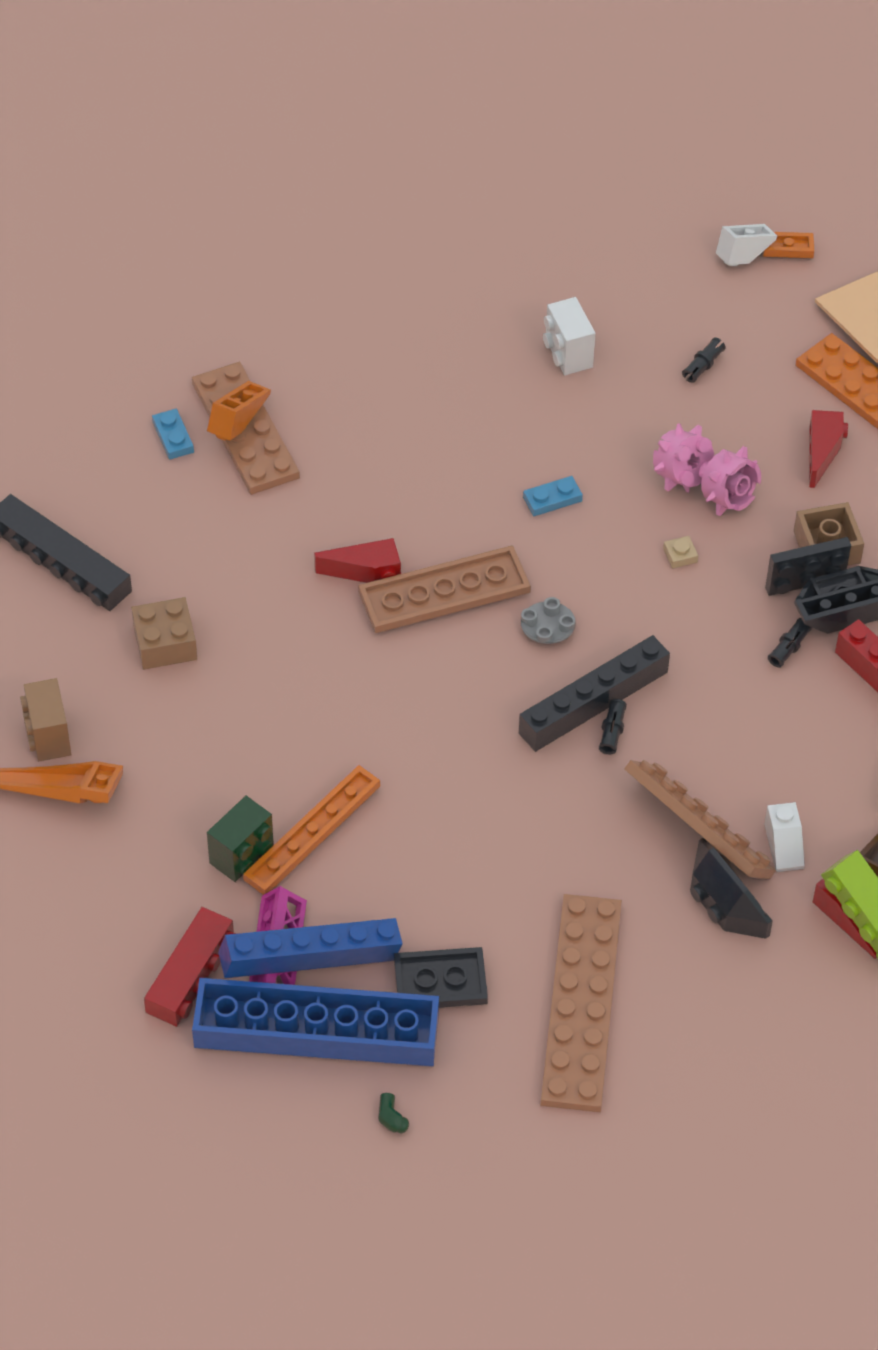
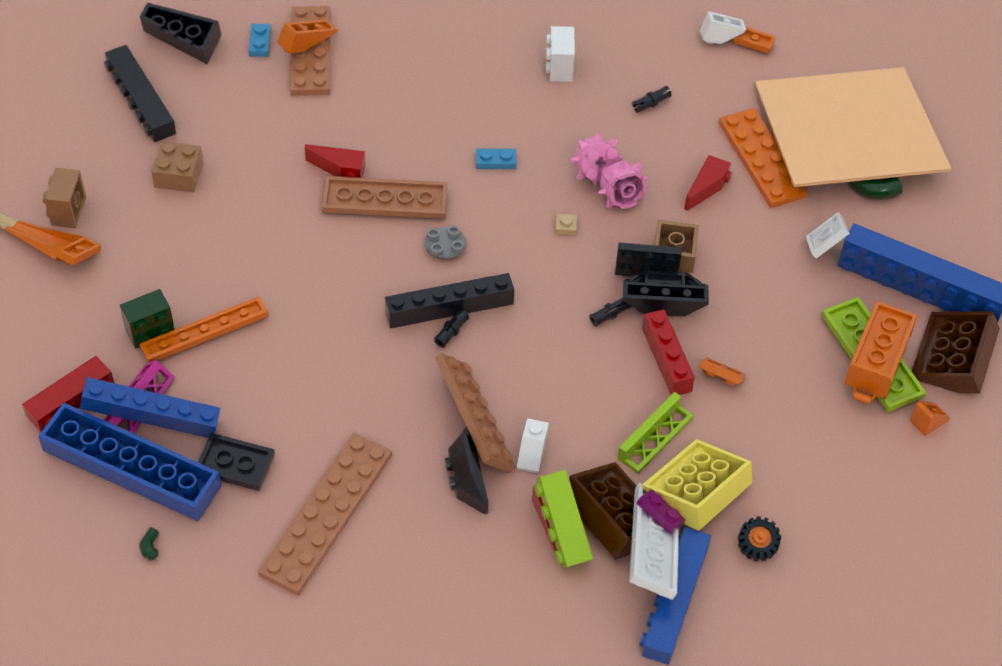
camera: 20 degrees right, 0 degrees up
(69, 452) = (182, 30): none -> black wedge

